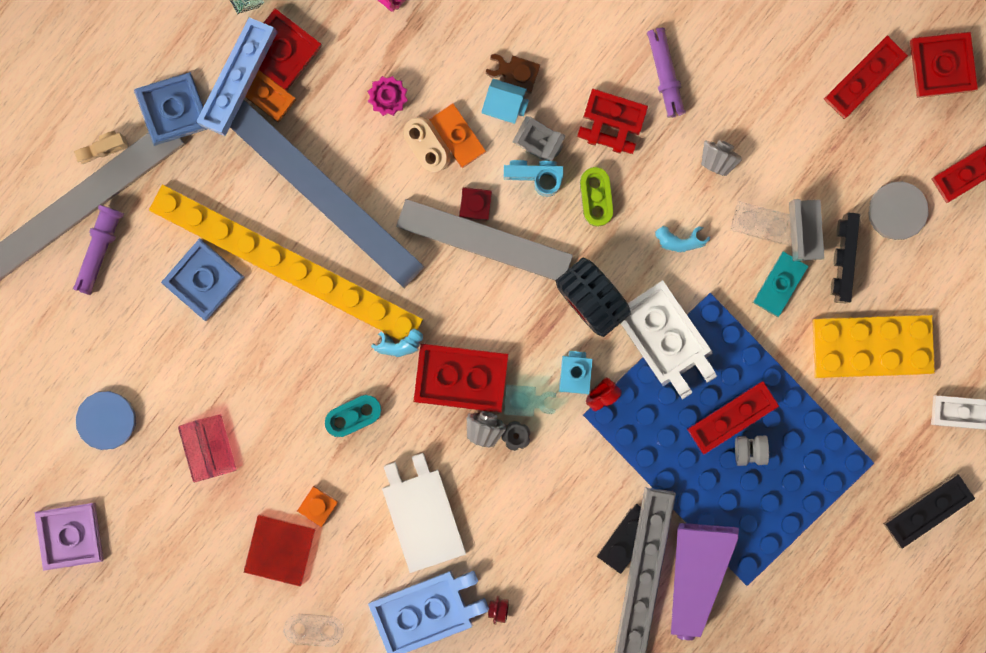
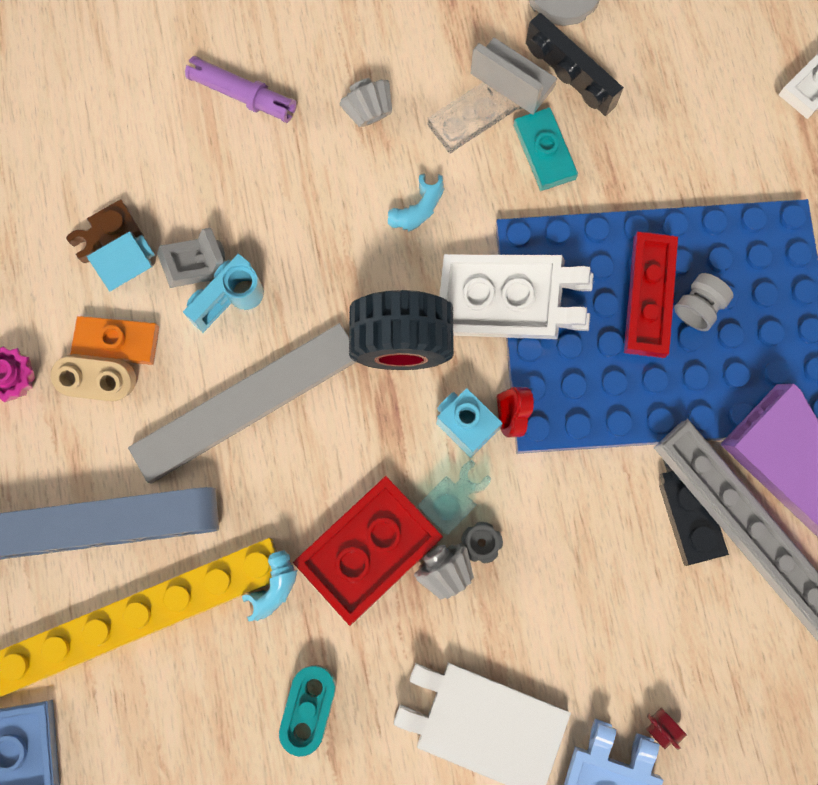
camera: 50 degrees left, 10 degrees down
(475, 204) = (200, 379): dark red plate -> none
(596, 197) = (303, 253): lime plate -> none
(616, 113) = (235, 166): red plate -> none
(873, 346) = (681, 112): yellow plate -> none

